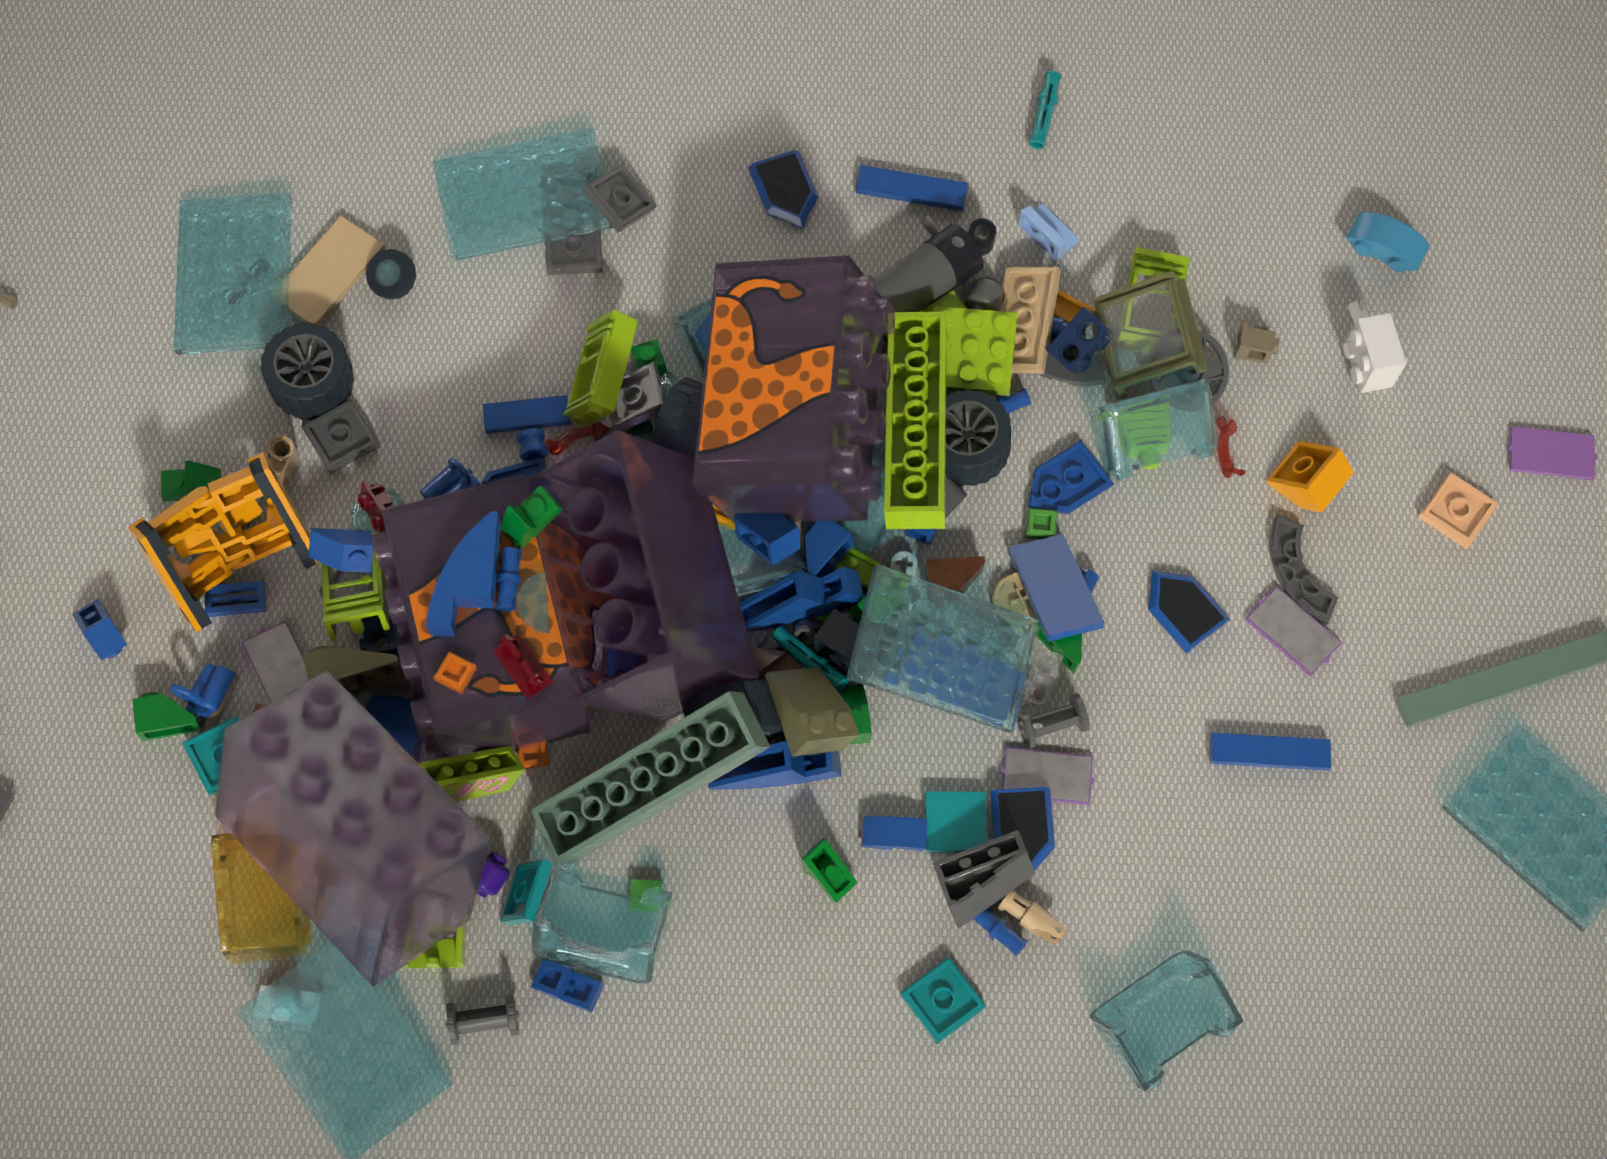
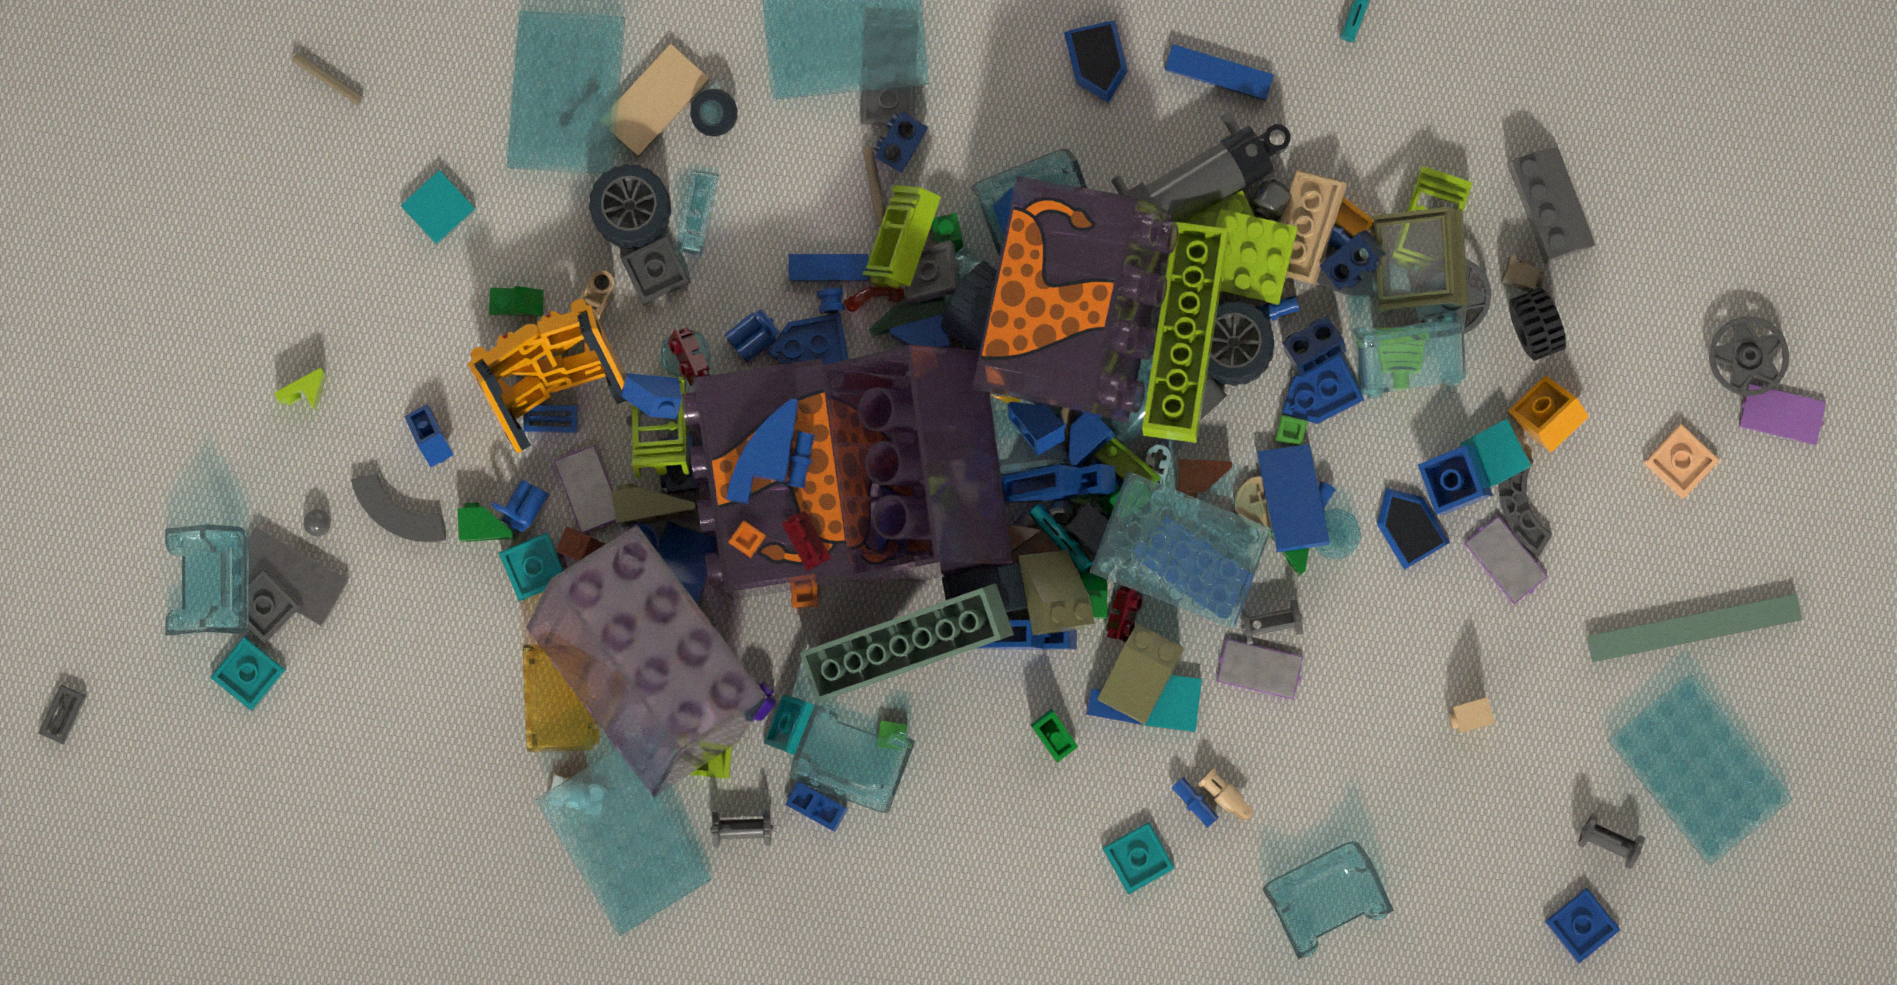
camera: 10 degrees right, 15 degrees up
(64, 722) = (394, 518): none -> dark grey tile
(101, 398) = (438, 207): none -> teal tile
(380, 374) = (697, 213): none -> clear light blue slope
(476, 773) = (753, 616): lime brick -> none
(530, 518) = (825, 405): green slope -> none
(533, 603) = (820, 483): clear light blue tile -> none
(567, 328) = (874, 185): none -> dark tan bar
(597, 282) = (906, 143): none -> dark blue brick
(620, 198) = (937, 58): dark grey tile -> none
(892, 719) = (1122, 625): none -> dark red hinge
(918, 790) = (1141, 673): none -> olive slope
(983, 875) = (1186, 757): dark grey wedge -> none
(1028, 812) = (1230, 714): black tile -> none
(1042, 677) = (1268, 580): clear leg -> none
(1047, 231) = (1344, 132): light blue panel -> none
(1052, 433) = (1317, 351): none -> dark blue brick
(1117, 626) = (1343, 534): none -> clear light blue hat
(1225, 461) = (1471, 378): clear red piece -> none
(1226, 548) = (1455, 480): none -> blue brick
(1263, 522) = (1499, 452): none -> teal tile
(1270, 275) = (1550, 204): none -> dark grey slope
(1270, 751) = (1463, 671): blue tile -> none
(1284, 383) = (1537, 324): none -> black tyre
(1291, 793) = (1471, 715): none -> tan slope
(1373, 349) = (1629, 296): white brick -> none
(1388, 241) = (1667, 184): dark azure brick -> none
(1456, 1016) = (1582, 925): none -> blue tile
(1471, 915) = (1611, 841): none -> dark grey hose
(1507, 396) = (1748, 356): none -> dark grey wheel

